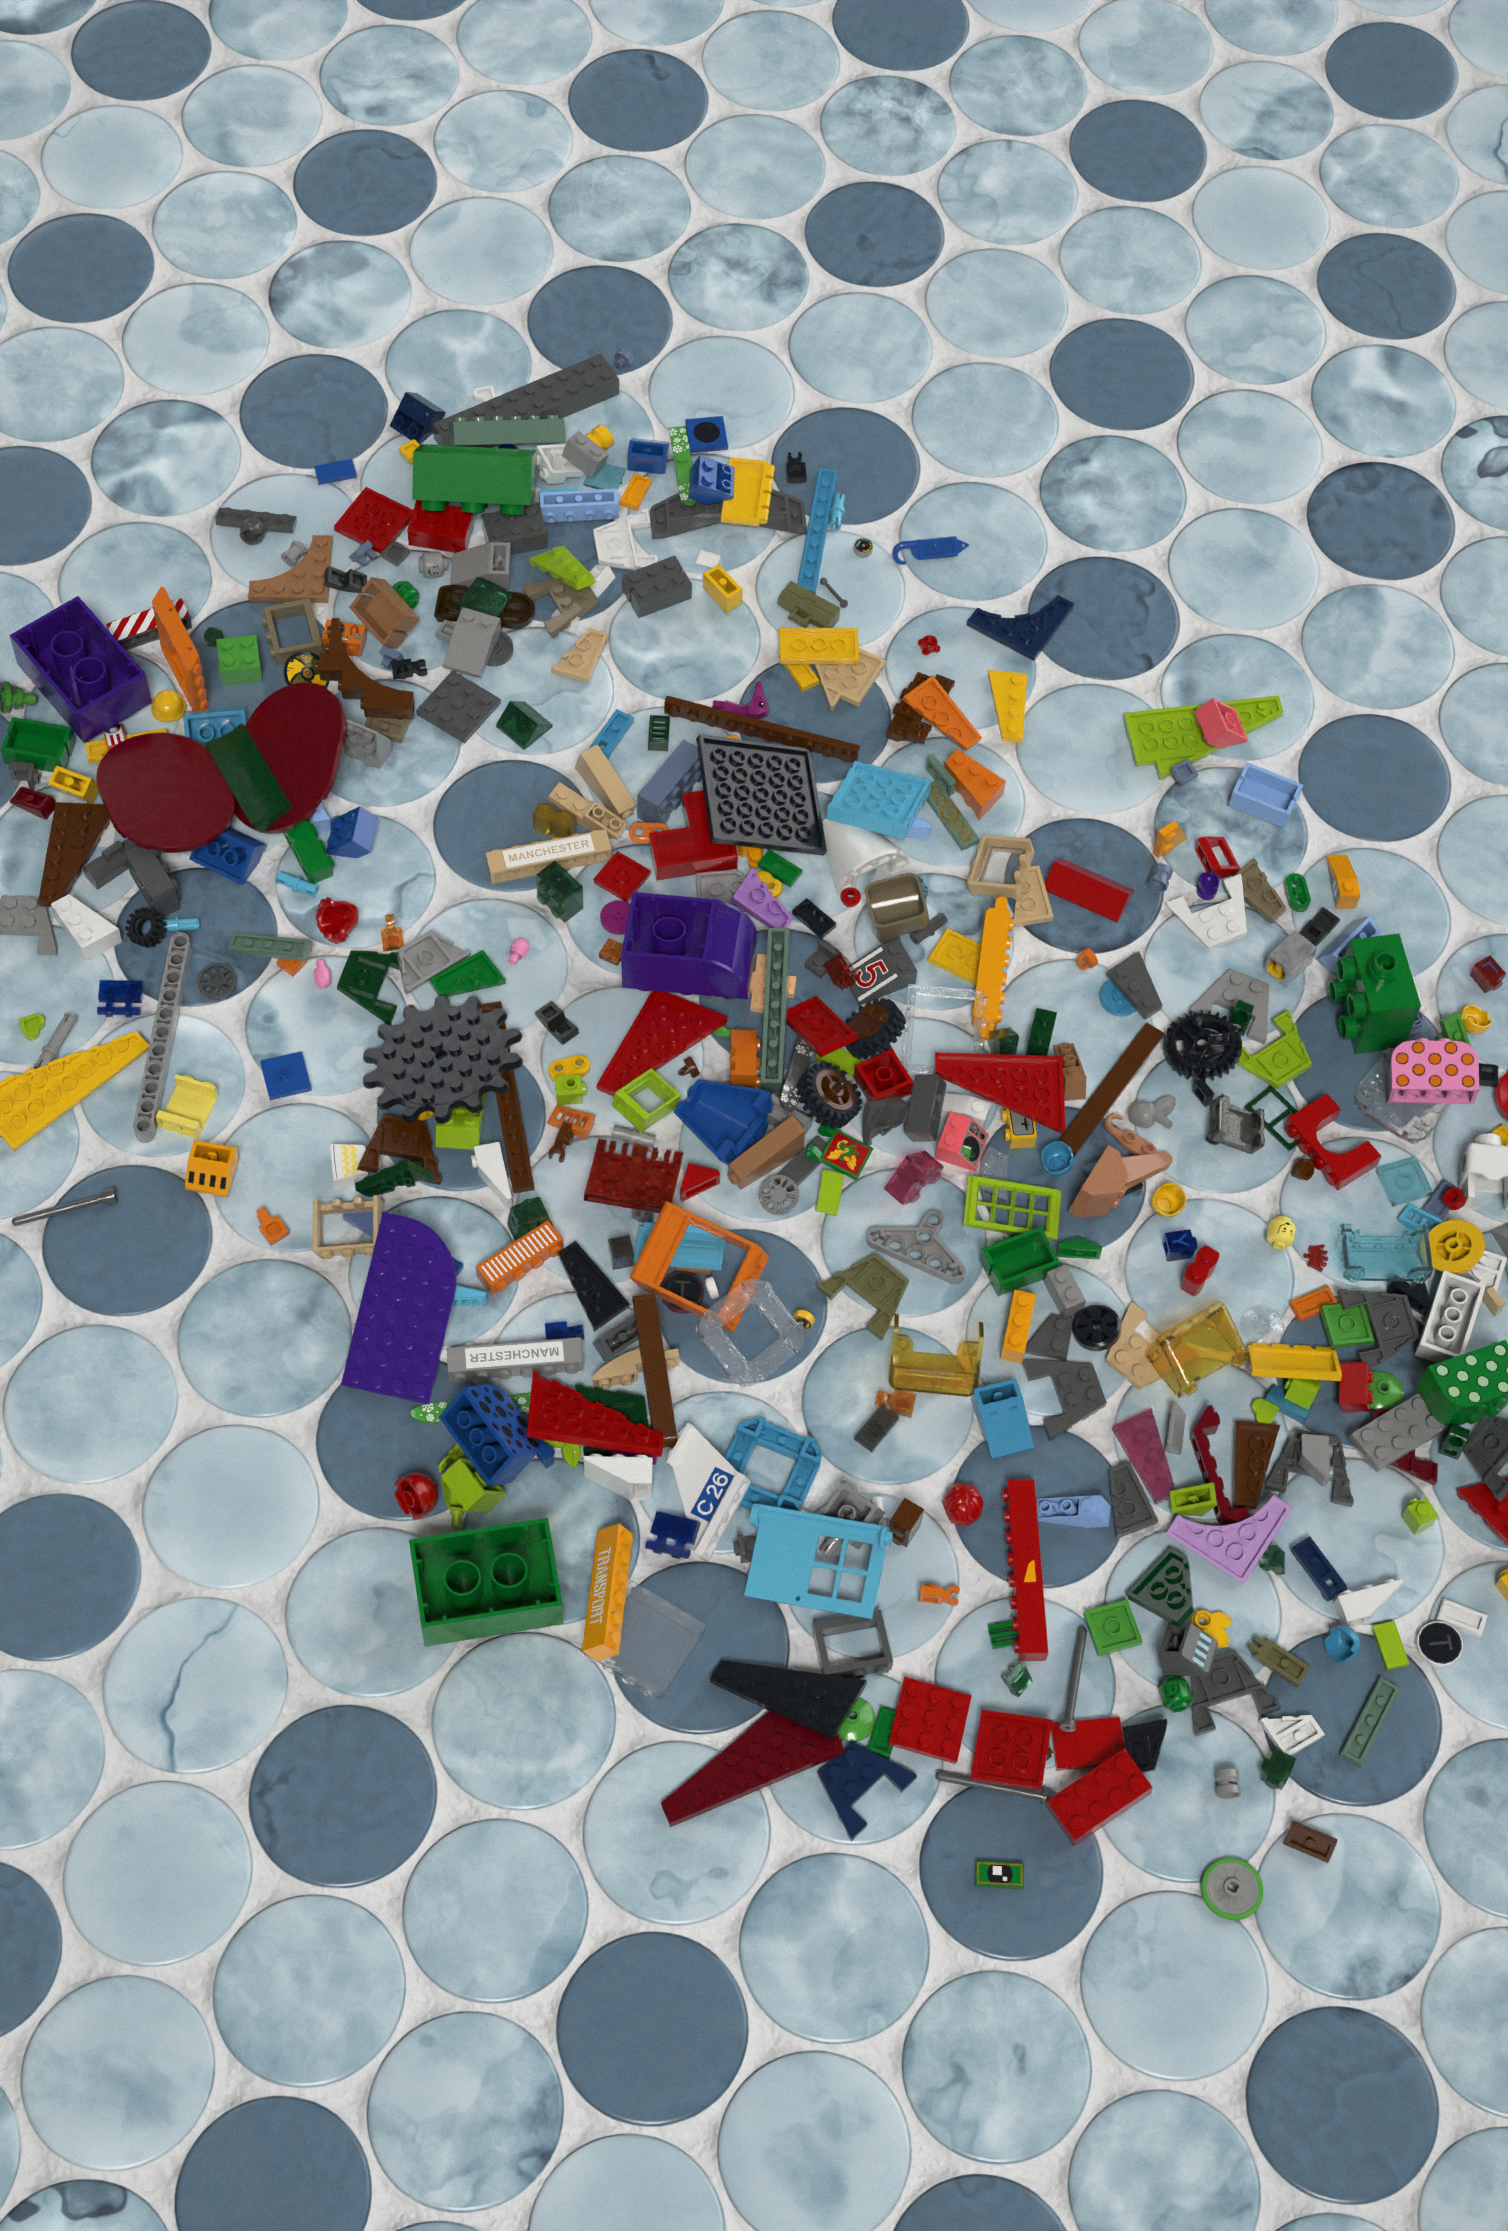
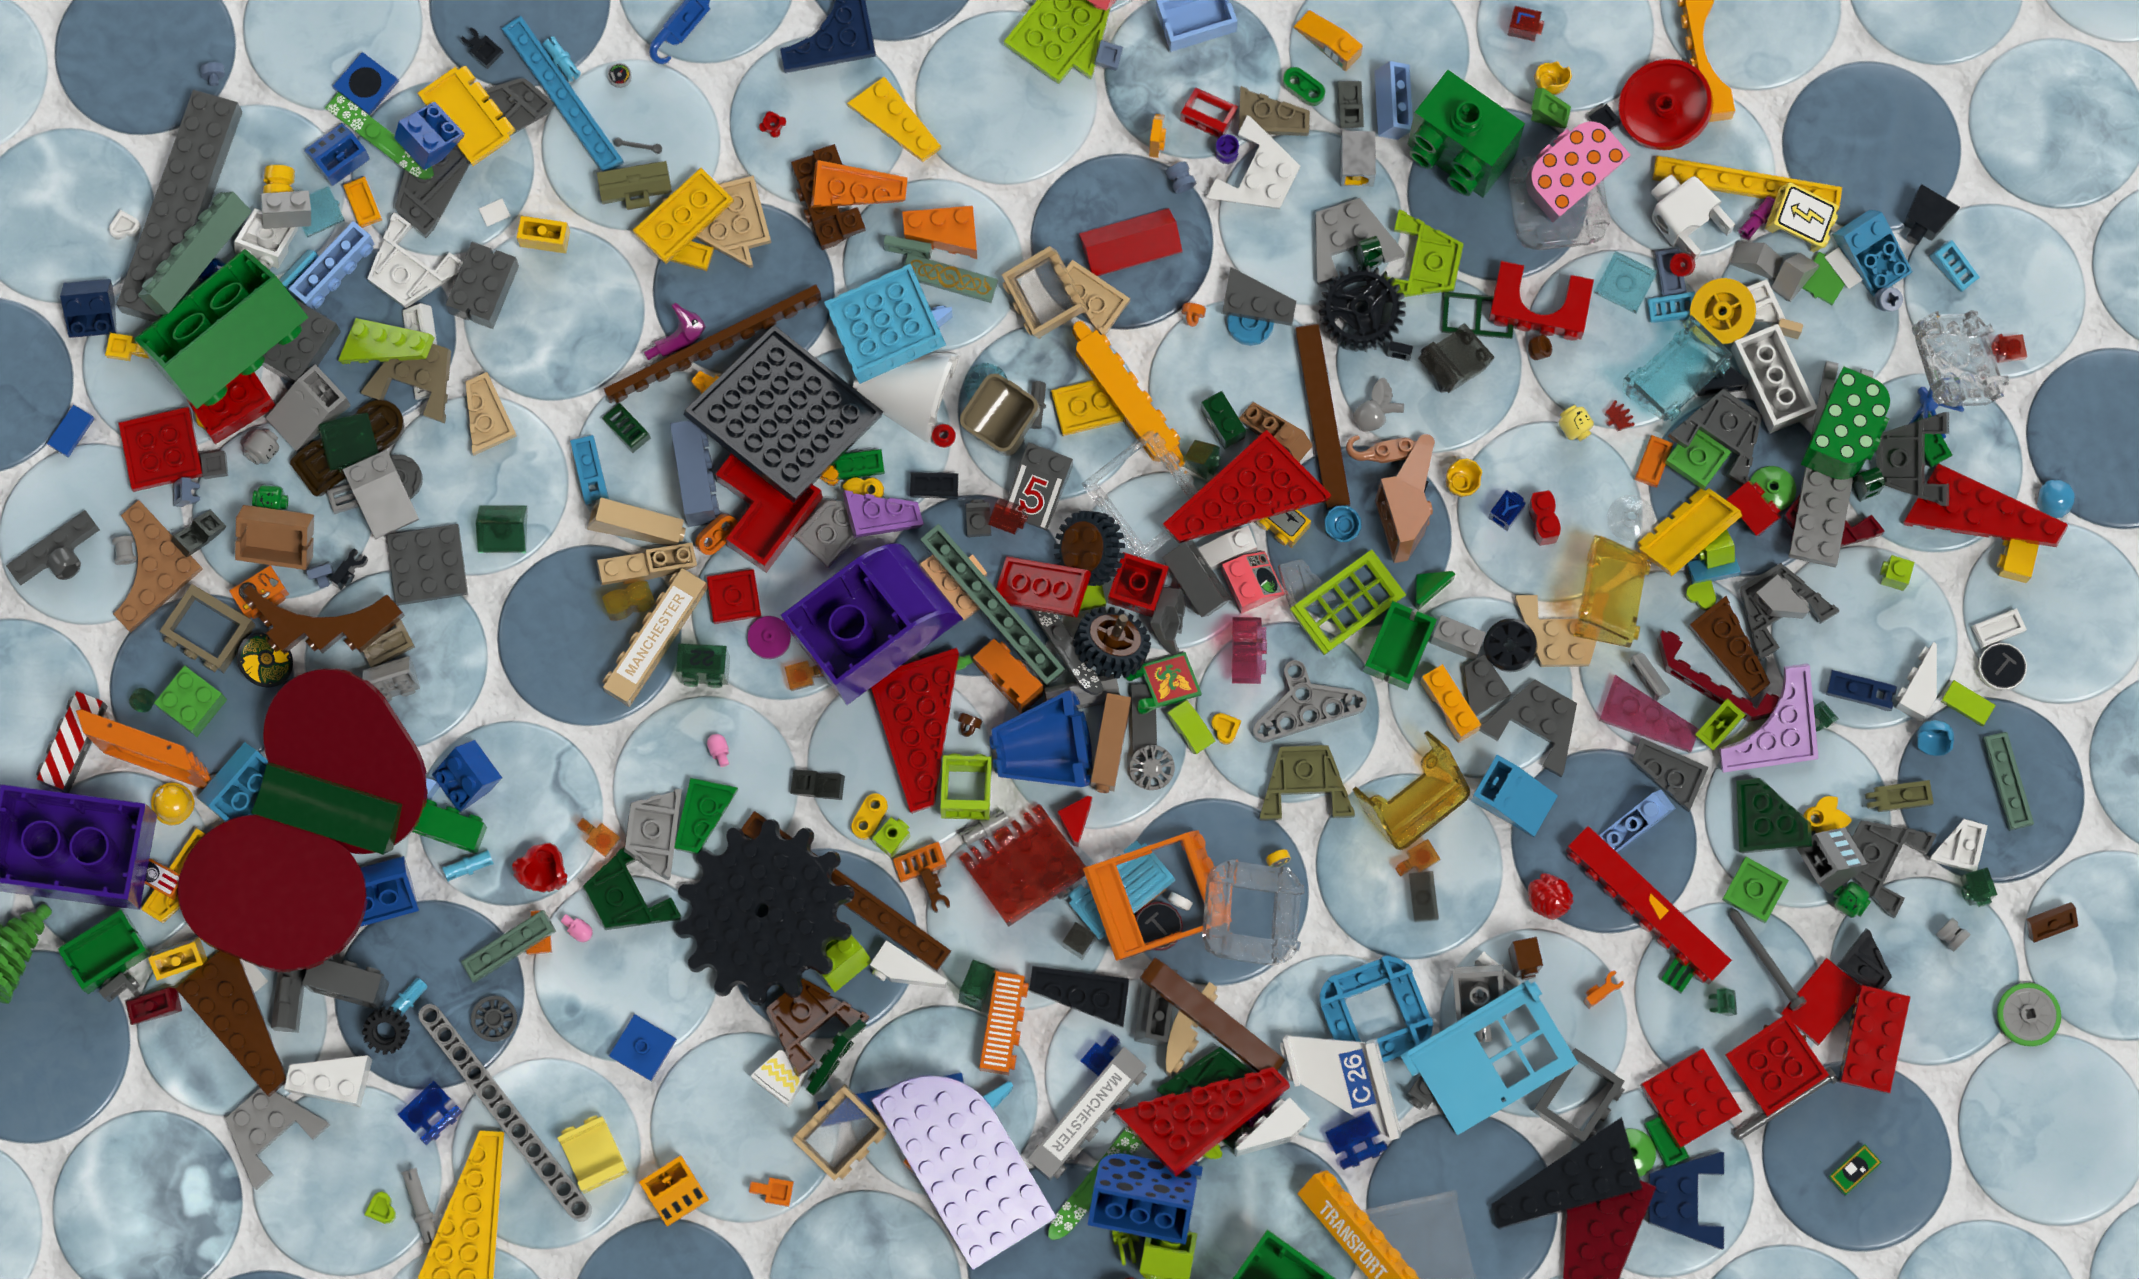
camera: 40 degrees left, 15 degrees up
(852, 1214) = (1225, 727): none -> yellow tile

